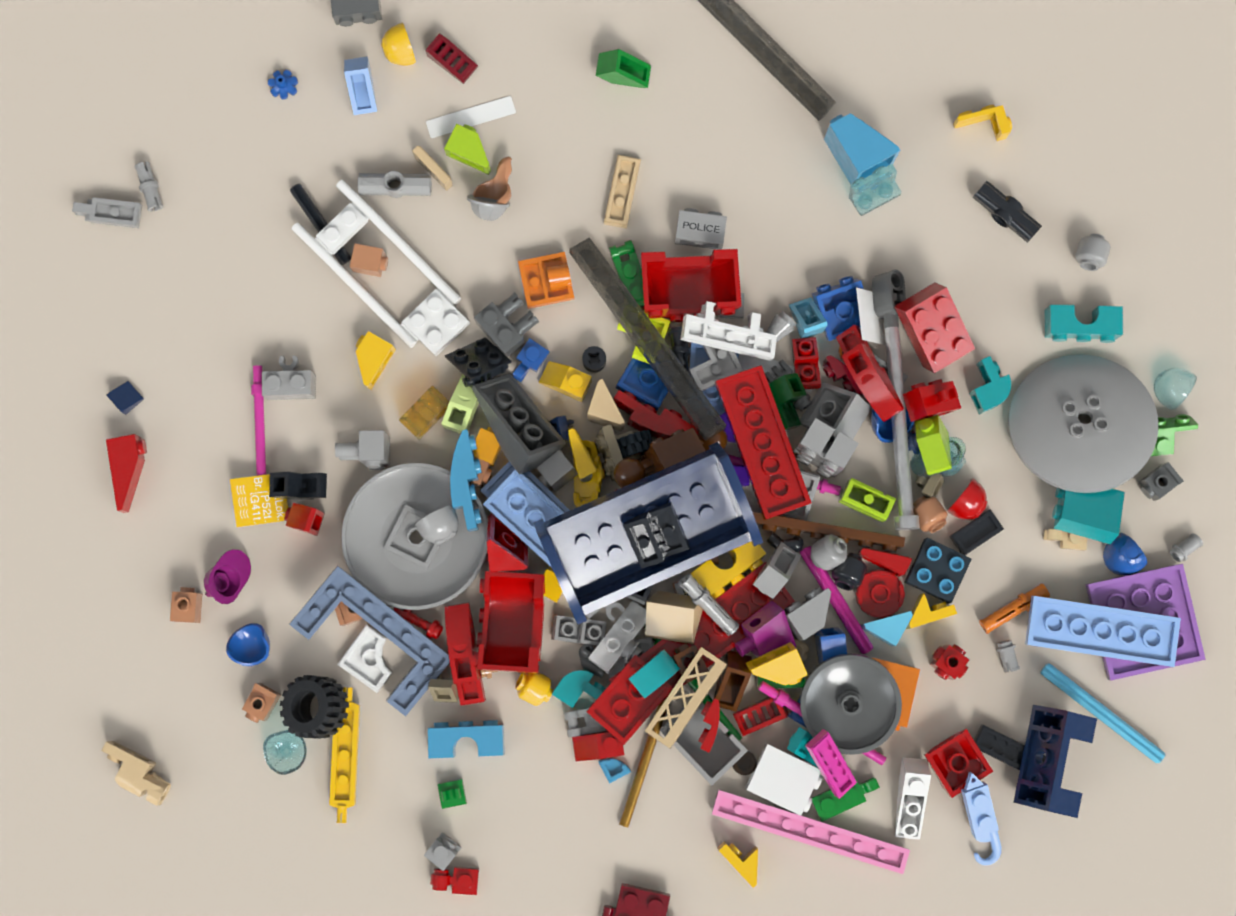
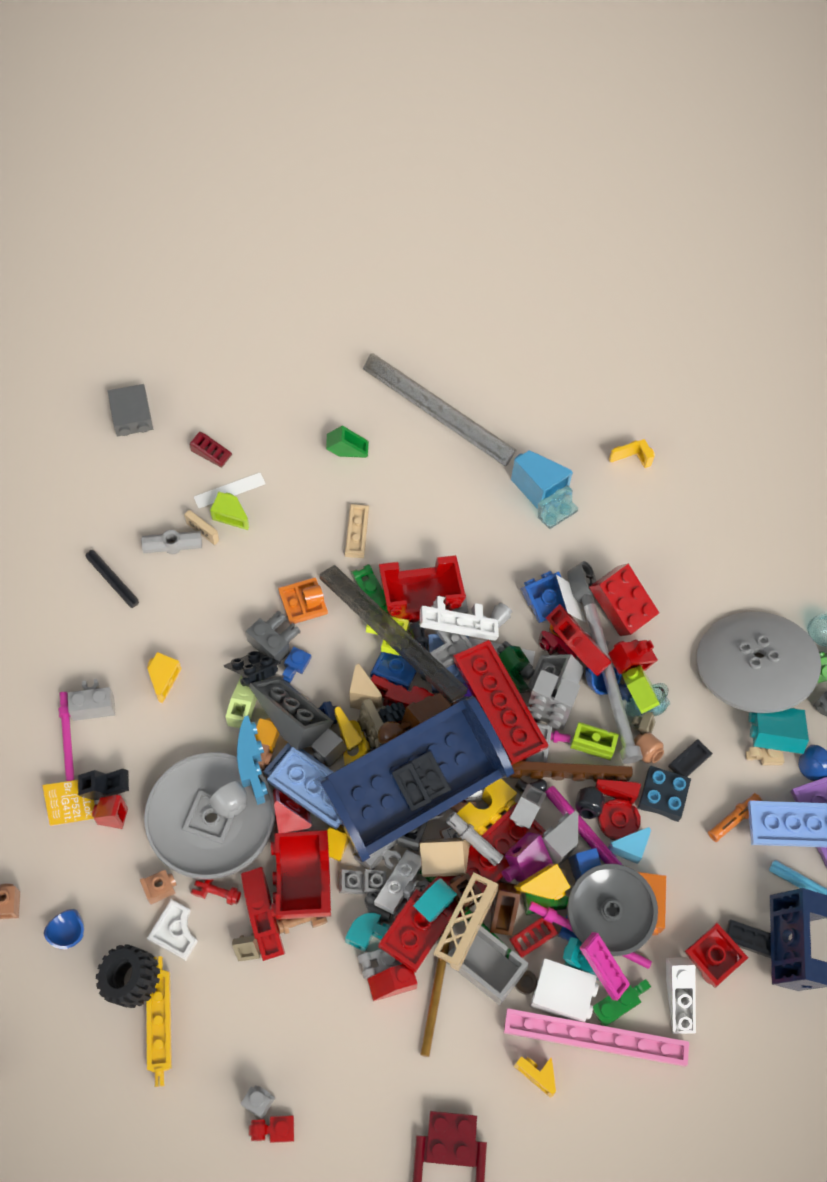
camera: 10 degrees left, 20 degrees down
(228, 576) = (43, 870): magenta piece -> none
(269, 700) = (86, 978): nougat brick -> none
(283, 84) = (76, 480): blue plant -> none
(284, 752) = (101, 1022): clear light blue helmet -> none
(342, 587) = (150, 863): sand blue plate -> none
(360, 85) = (139, 474): light blue slope -> none
(368, 260) = (153, 600): nougat brick -> none
(370, 449) = (164, 747): light grey brick -> none
(397, 46) = (167, 444): yellow helmet -> none
(425, 412) = (210, 713): clear yellow brick -> none
(434, 320) = (210, 644): white plate -> none
(443, 739) = (250, 991): dark azure arch -> none
(452, 793) = (262, 1046): green tile -> none
(493, 196) = (253, 543): piece -> none
(534, 688) = (328, 936): yellow head -> none
(566, 380) = (329, 675): yellow slope -> none
(594, 363) = (349, 662): black wheel -> none
(613, 769) = (408, 1003): dark azure tile -> none
(701, 229) = (423, 550): light grey brick -> none
(712, 714) = (491, 937): red slope -> none
(806, 362) = (525, 638): red slope -> none
(808, 318) = (522, 608): medium azure slope -> none
(829, 552) = (570, 786): light grey head -> none
(923, 615) = (660, 831): yellow slope -> none
(941, 665) = (690, 868): red brick -> none
(970, 503) = (679, 735): red helmet -> none
(981, 817) = (747, 1002): light blue plate -> none
(995, 388) = (681, 643): teal brick -> none
(1007, 211) = (663, 514): black piece -> none
(1008, 656) = (738, 858): light grey pin -> none
(1063, 324) = (726, 591): teal arch -> none
(1092, 252) = (736, 535): light grey head -> none

